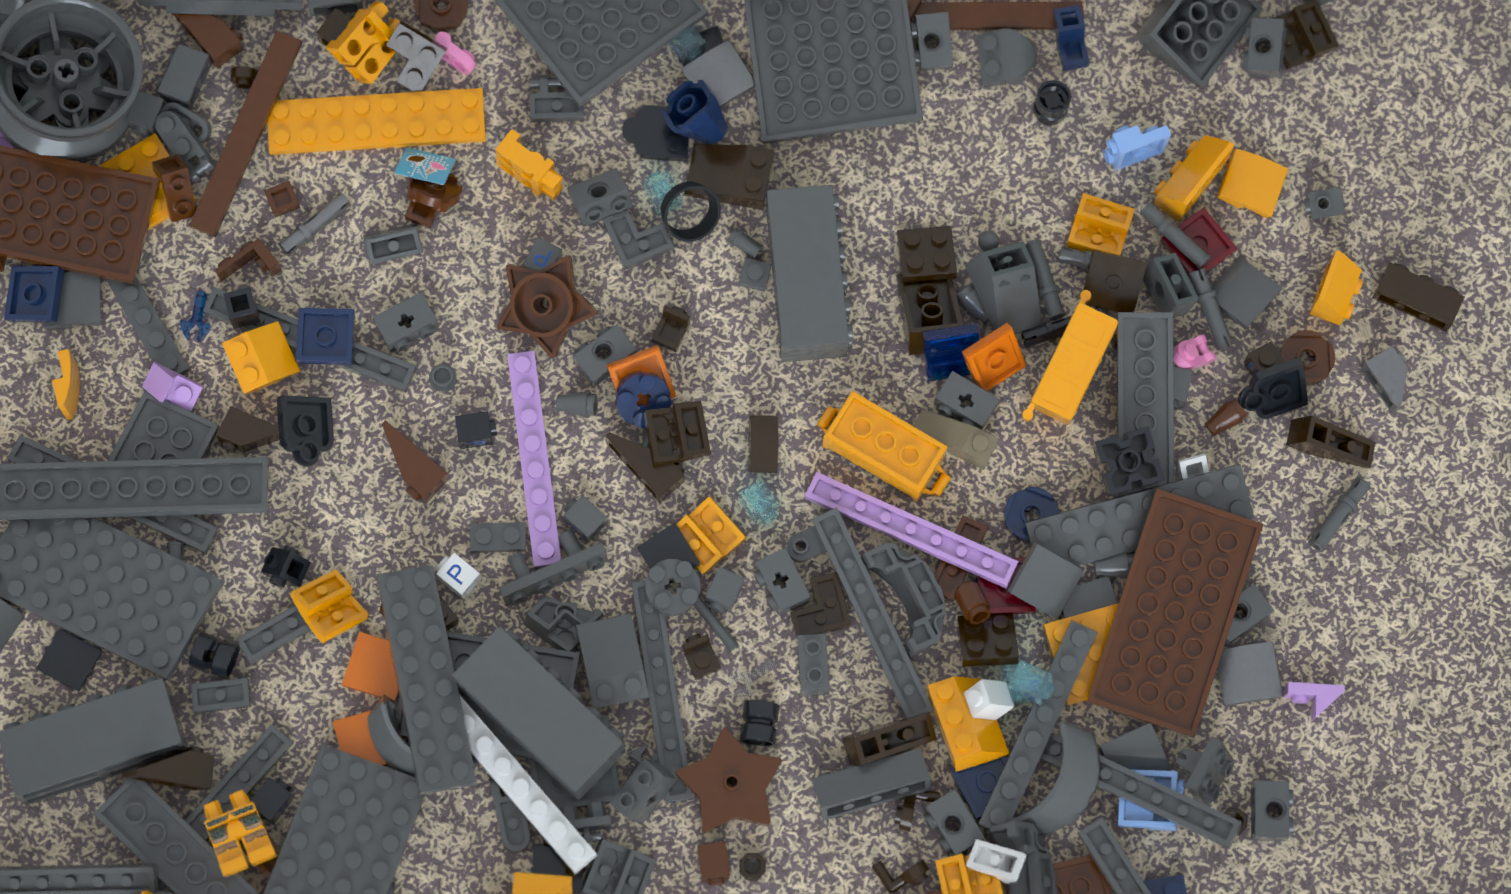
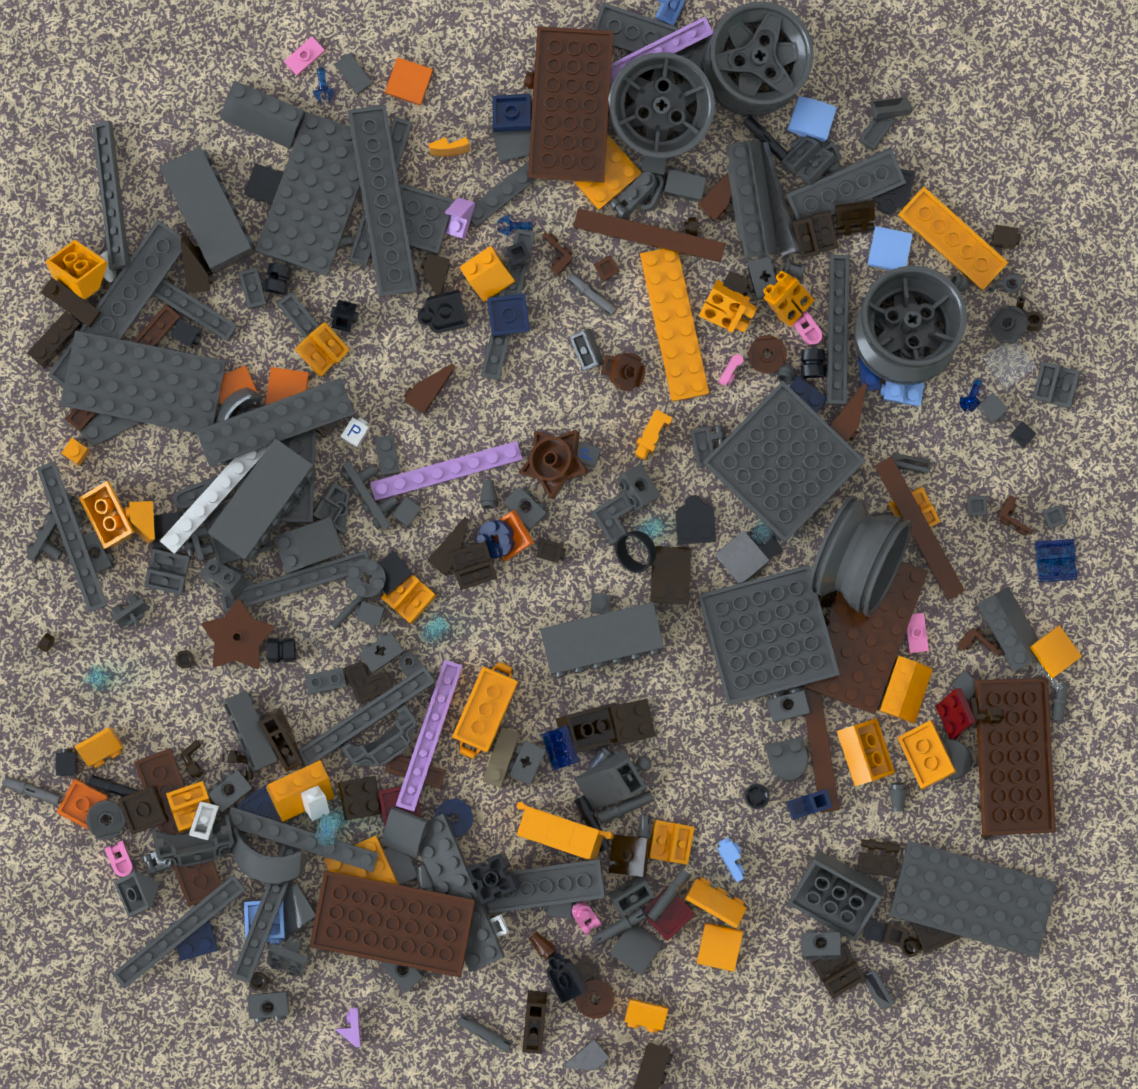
camera: 85 degrees right, 10 degrees up
(176, 187) = (602, 194): reddish brown bracket -> none
(237, 825) = (157, 313): light orange hips -> none
(413, 310) = (538, 372): dark grey brick -> none
(422, 53) = (724, 345): plate -> none
(425, 166) = (643, 362): medium azure sticker -> none
(442, 378) = (494, 399): dark grey plate -> none
(475, 430) = (459, 427): black brick -> none
(695, 113) = (707, 543): dark blue cone -> none
(700, 656) = (323, 604): dark brown bracket -> none
(713, 863) = (182, 633): reddish brown brick -> none
(745, 243) = (621, 593): dark grey pin -> none
(763, 444) = (477, 626): dark brown slope -> none
(972, 602) = (382, 784): reddish brown brick -> none
(994, 358) = (559, 777): orange tile -> none
(1249, 674) = (362, 981): flat silver slope -> none
(1336, 203) = (709, 1000): dark grey brick -> none

